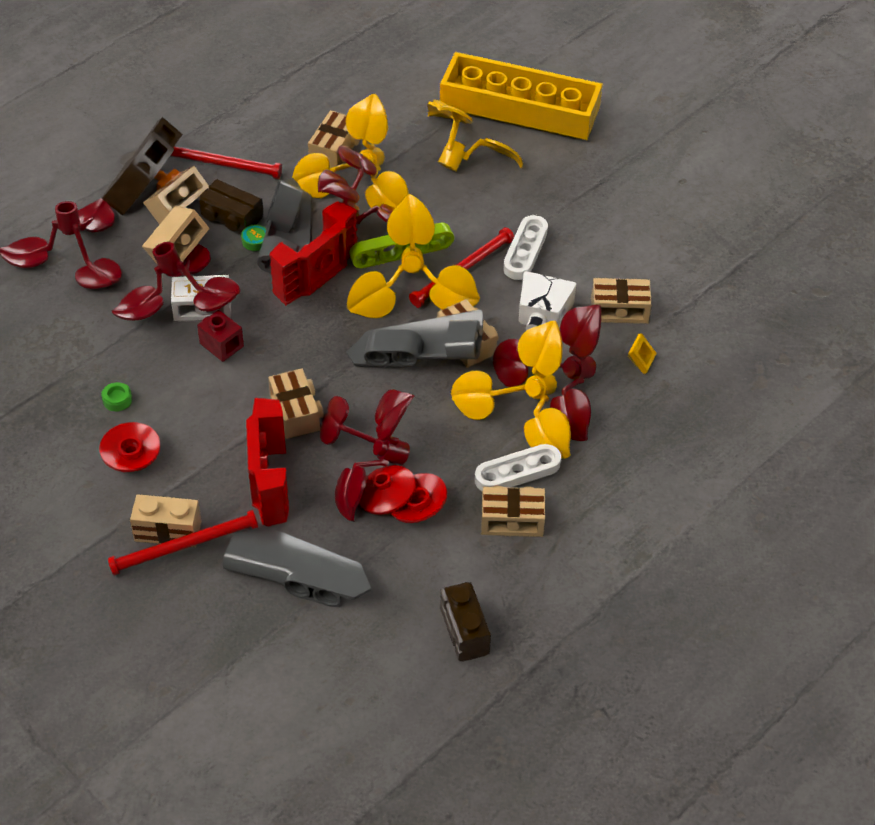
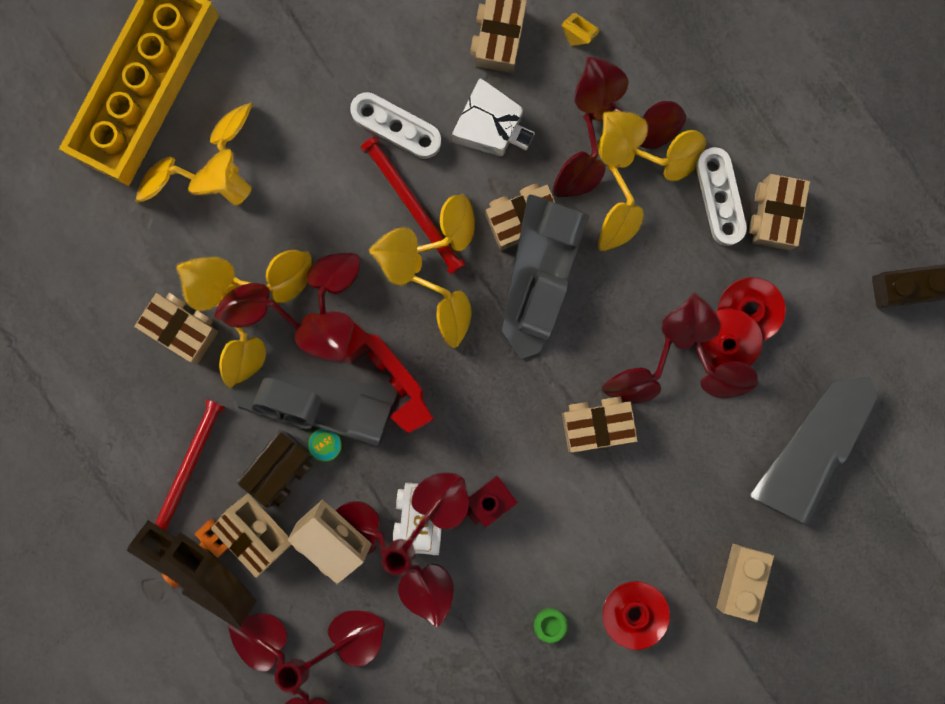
camera: 80 degrees left, 35 degrees up
(183, 542) = (785, 636): red bar -> none
(267, 438) = (737, 467): red plate -> none
(364, 254) = (371, 271): lime beam -> none

